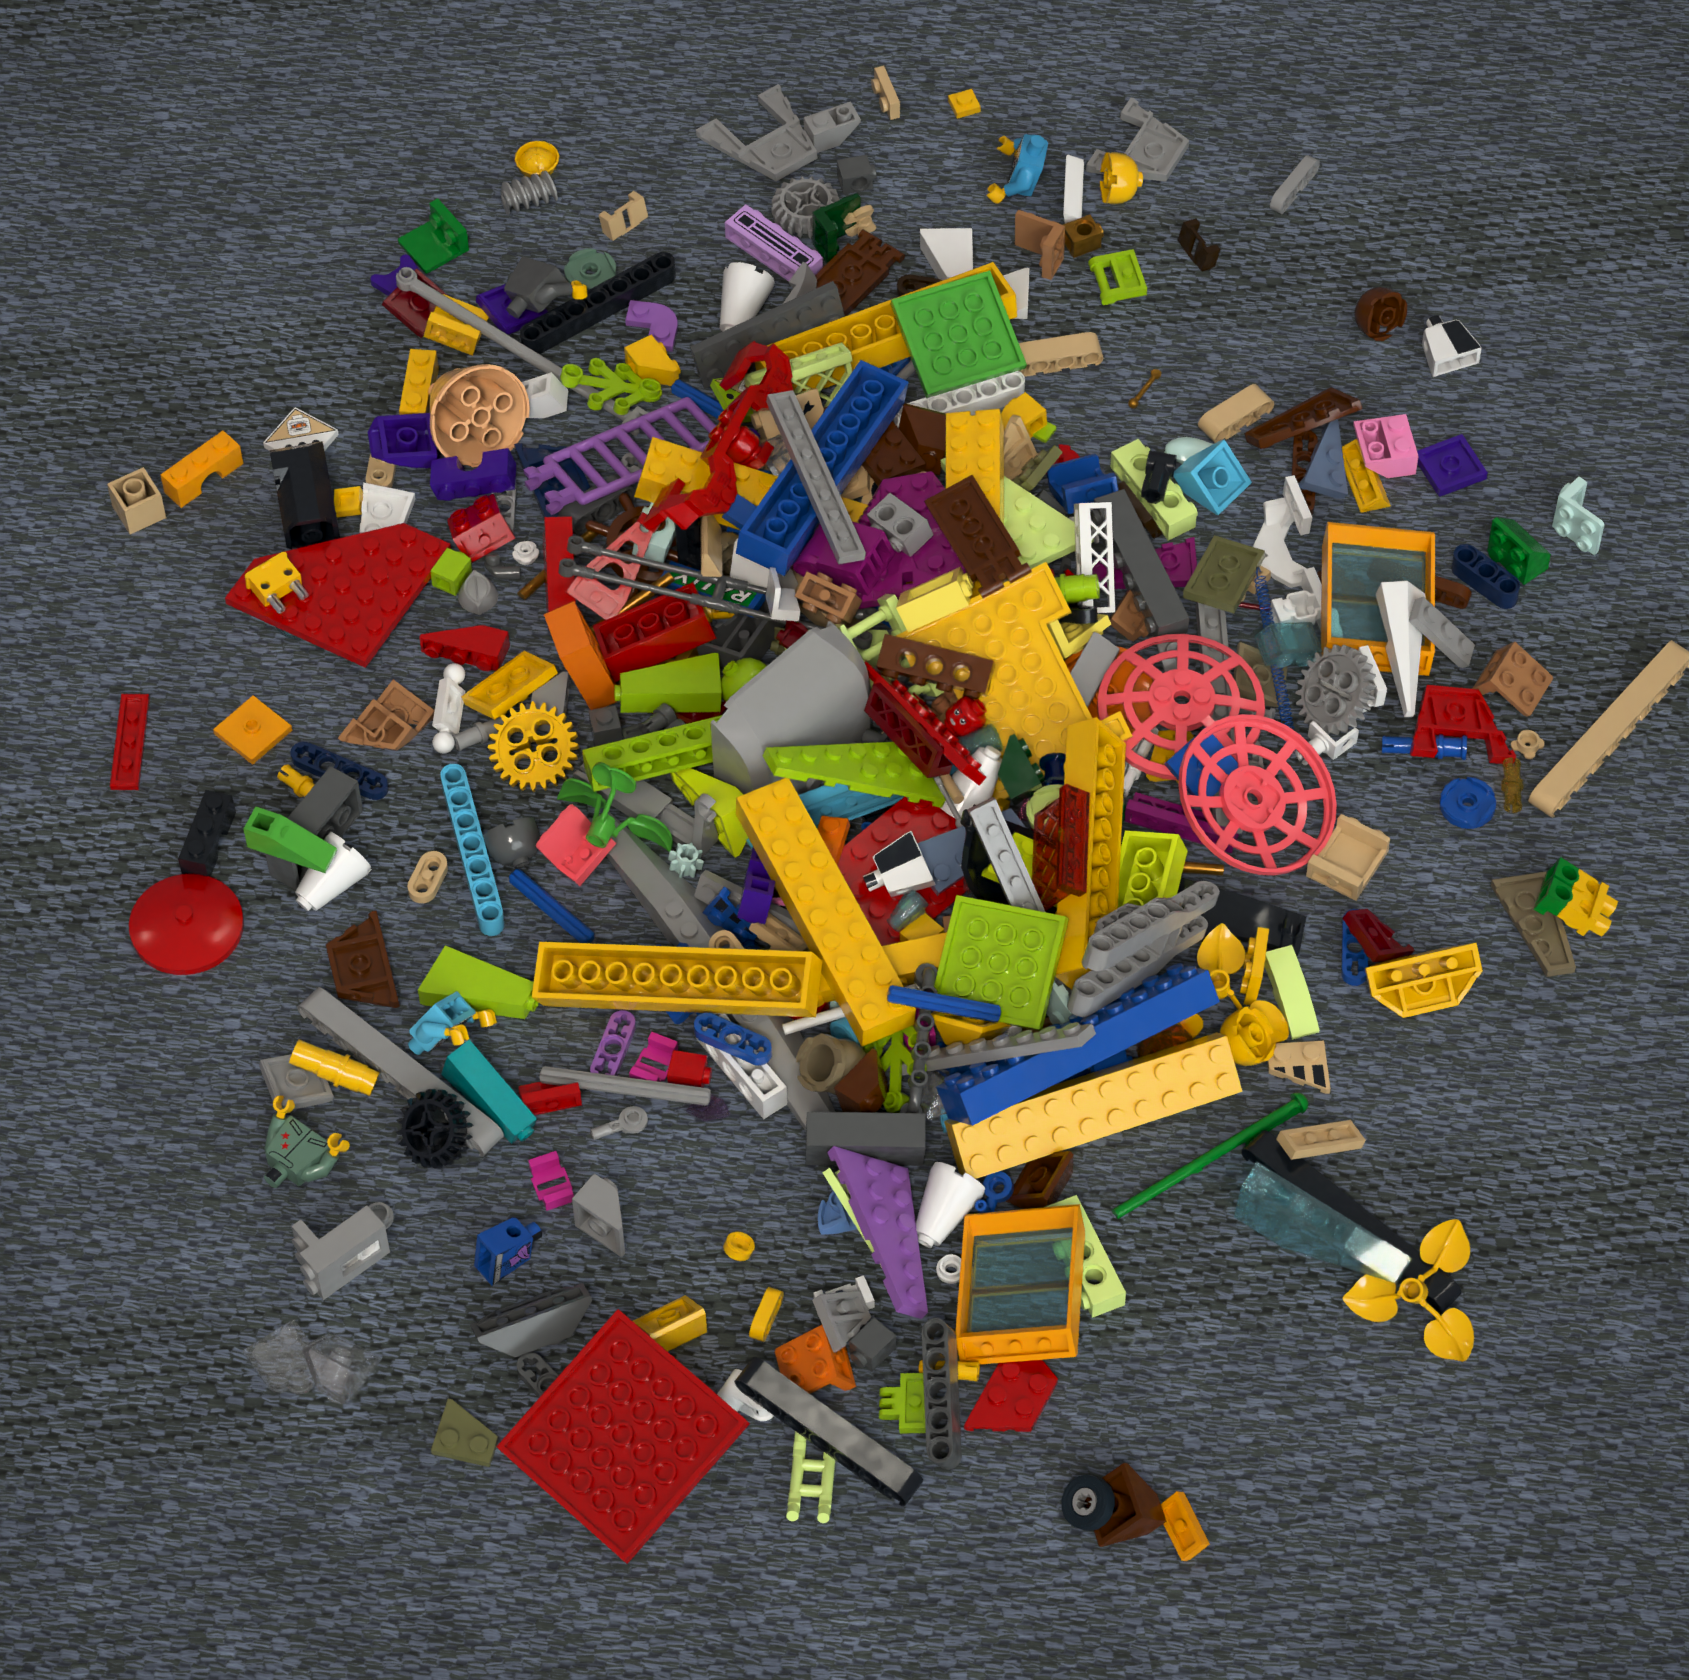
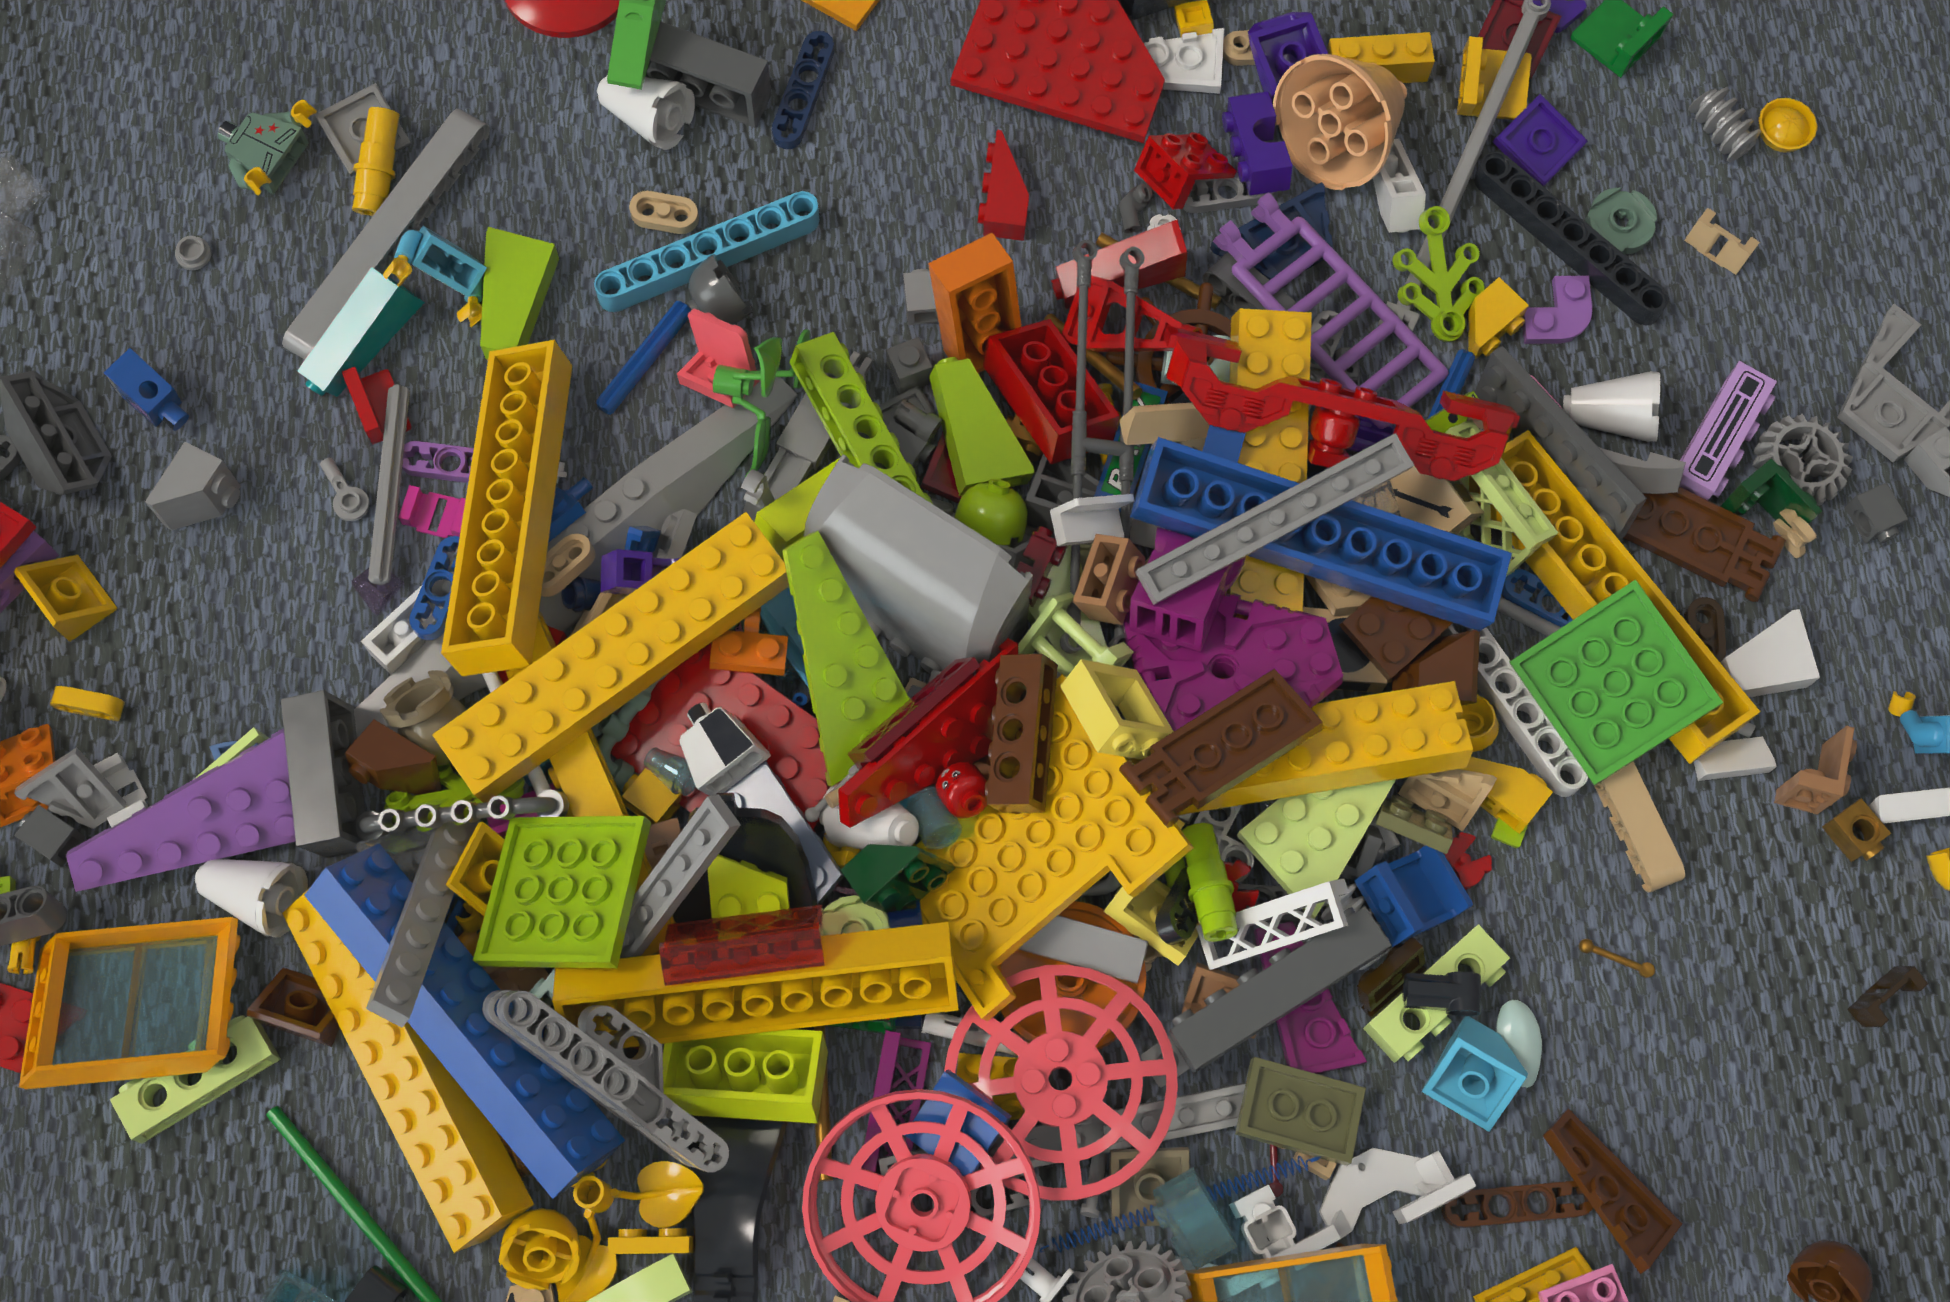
camera: 75 degrees right, 15 degrees up
(300, 784) = (779, 47): yellow pin -> none
(341, 1253) = (111, 206): light grey brick -> none
(362, 965) = (532, 167): reddish brown wing -> none
(387, 720) = (884, 123): medium nougat slope -> none
(428, 1108) = (295, 281): black gear -> none
(448, 708) = (909, 186): white plate -> none
(451, 571) = (1113, 150): lime brick -> none
(476, 734) = (882, 229): light grey pin -> none
(477, 593) = (1091, 189): light grey hat -> none
(509, 685) = (934, 231): yellow plate -> none
(527, 722) = (834, 304): yellow gear -> none
(536, 285) = (1562, 153): dark grey torso -> none
(545, 1169) = (243, 439): dark pink piece -> none
(686, 860) = (724, 503): light aqua gear -> none
(689, 1069) = (416, 551): red brick -> none
(739, 1246) = (183, 656): yellow tile -> none
(901, 524) = (1241, 649): light grey brick -> none
(943, 1003) = (480, 828): blue axle -> none
(945, 1262) = (171, 903): white plate -> none
(990, 1183) = (279, 952): blue plate -> none
(1126, 274) = (1806, 903): lime plate -> none
(1235, 413) = (1599, 1090): tan beam -> none
(1326, 469) = (1529, 1237): sand blue wing -> none

